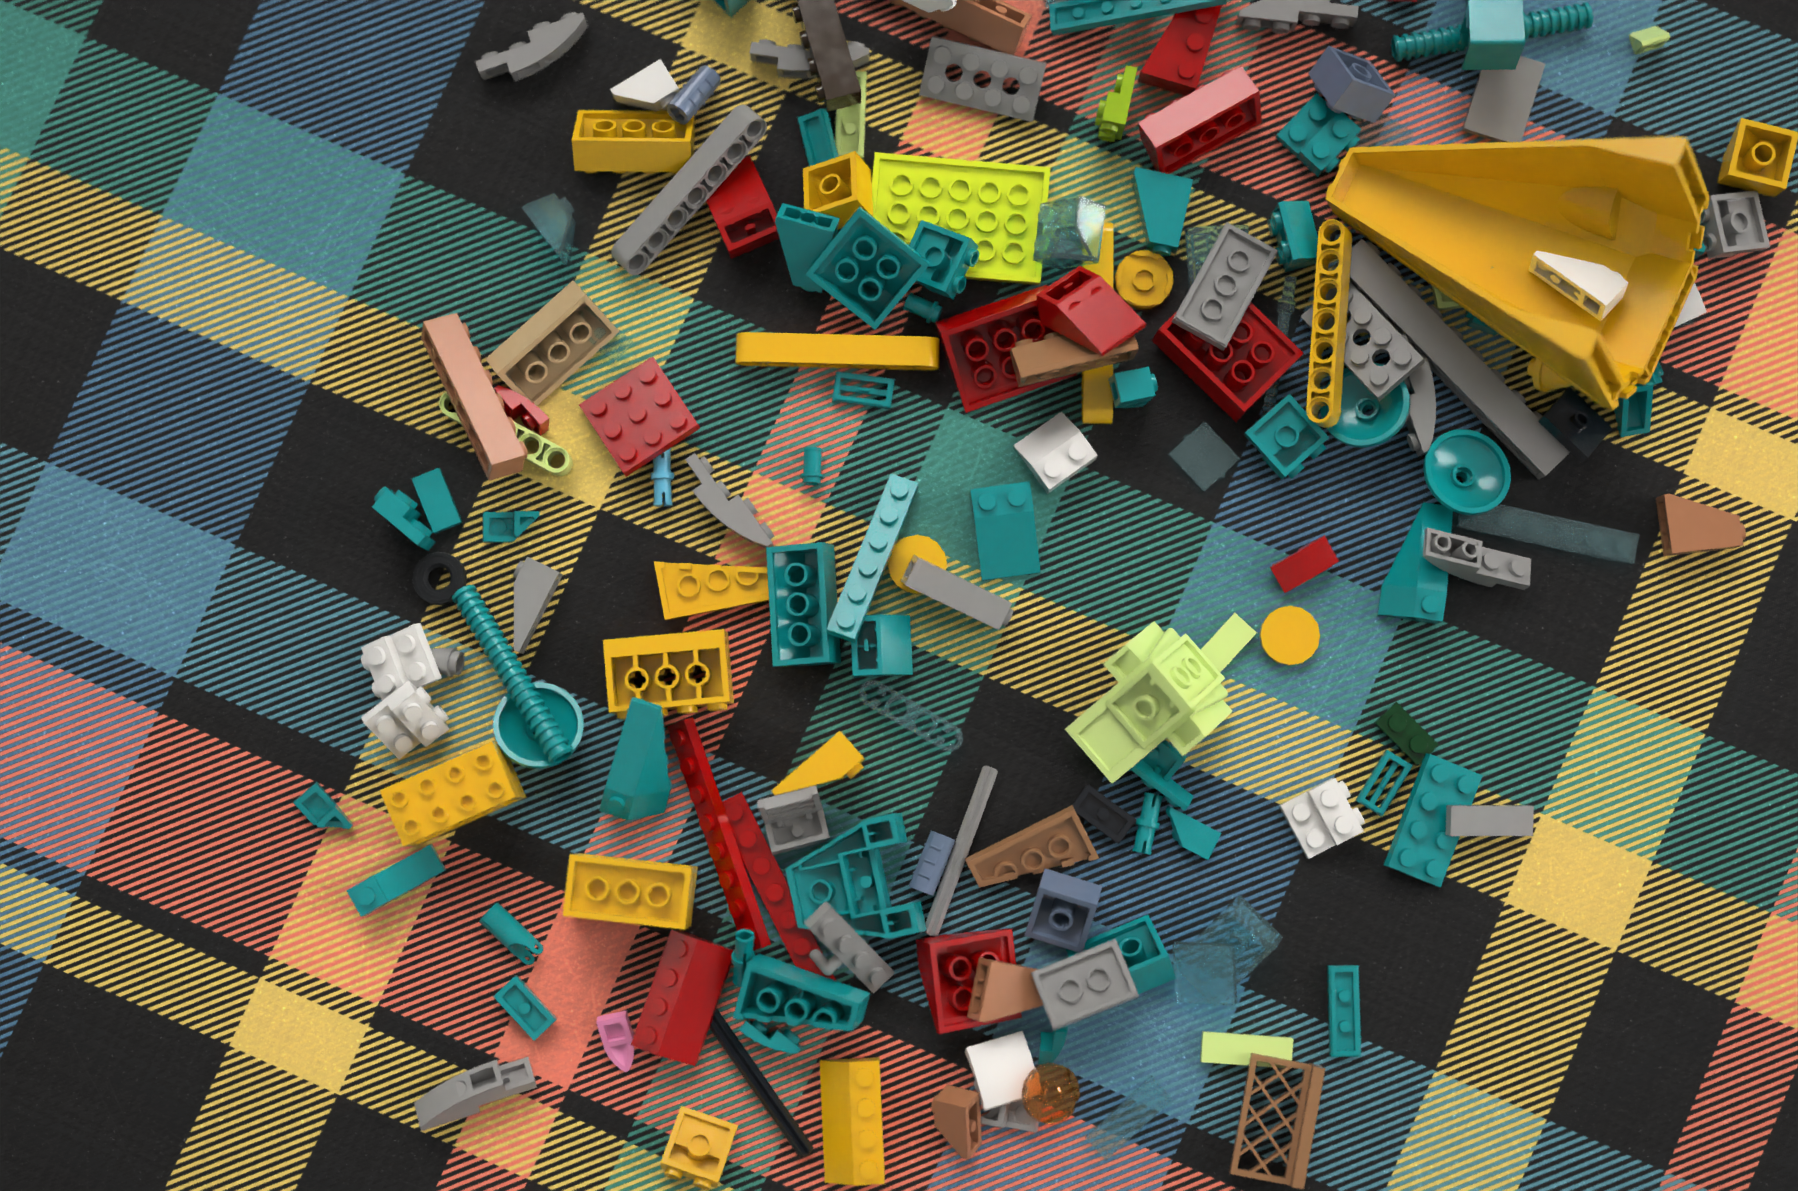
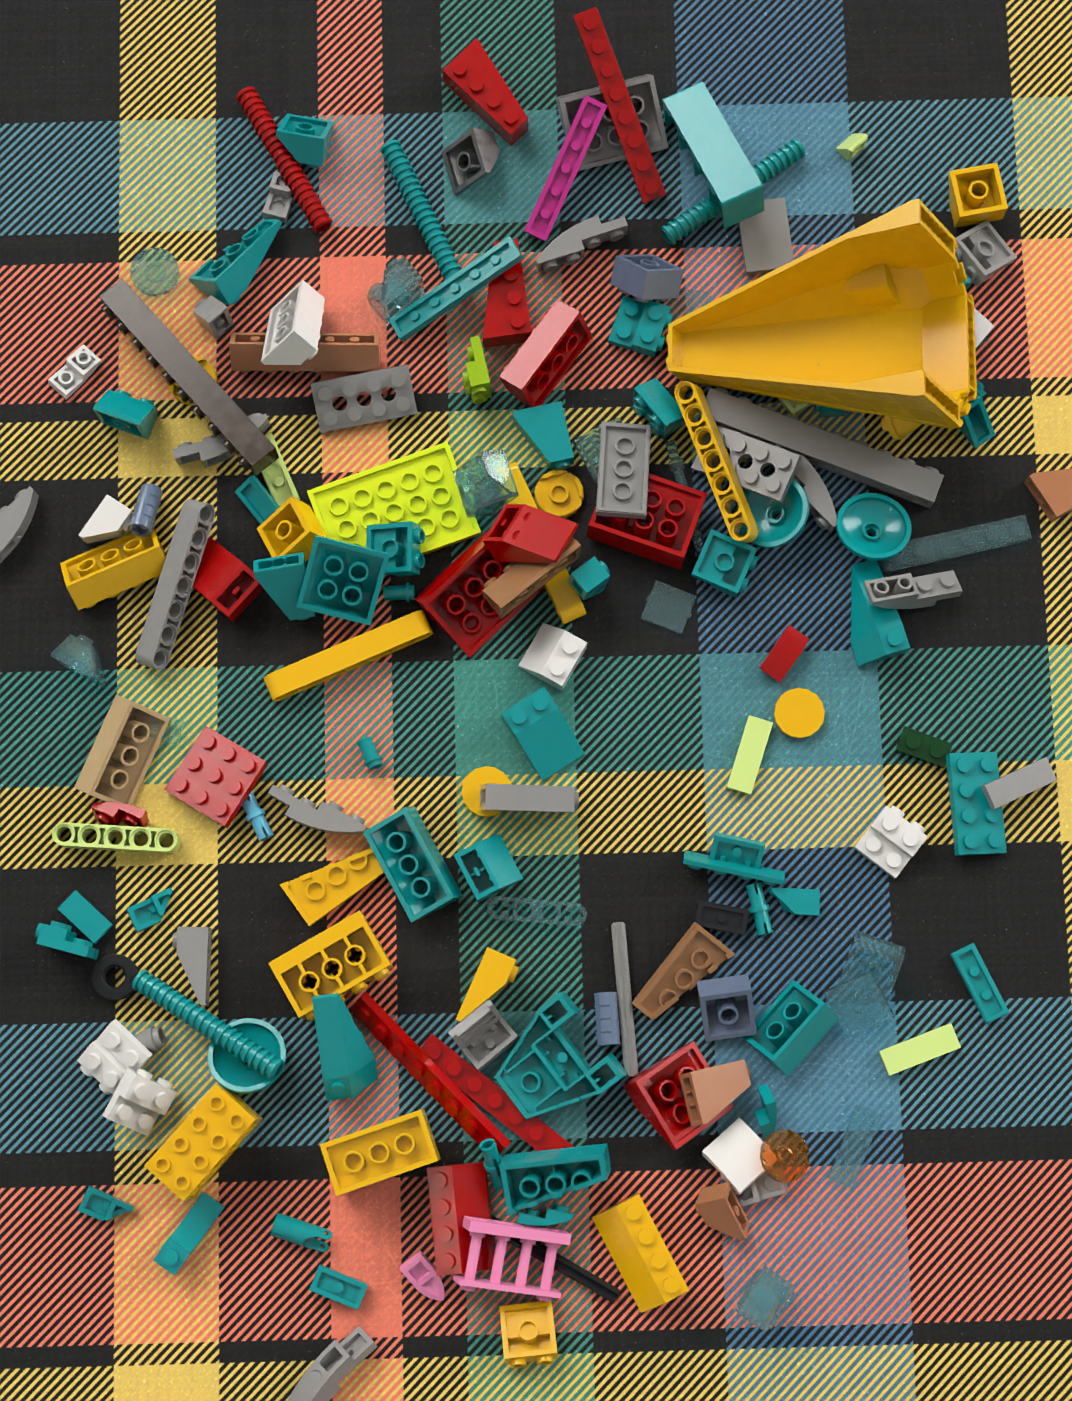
camera: 30 degrees left, 5 degrees down
(473, 396) = (78, 820): brick -> none
(719, 1033) = (503, 1232): none -> bright pink fence
(847, 949) = (572, 1115): light grey plate -> none
(862, 390) = (361, 683): teal tile -> none
(872, 558) = (450, 802): plate -> none
(1084, 984) = (771, 1056): light grey tile -> none
(1161, 694) = (722, 802): yellowish green piece -> none
(1303, 1126) = (992, 1092): medium nougat fence -> none
(1373, 777) = (914, 795): teal tile -> none
(1575, 424) = (937, 454): black plate -> none
(1583, 282) = (891, 344): white slope -> none

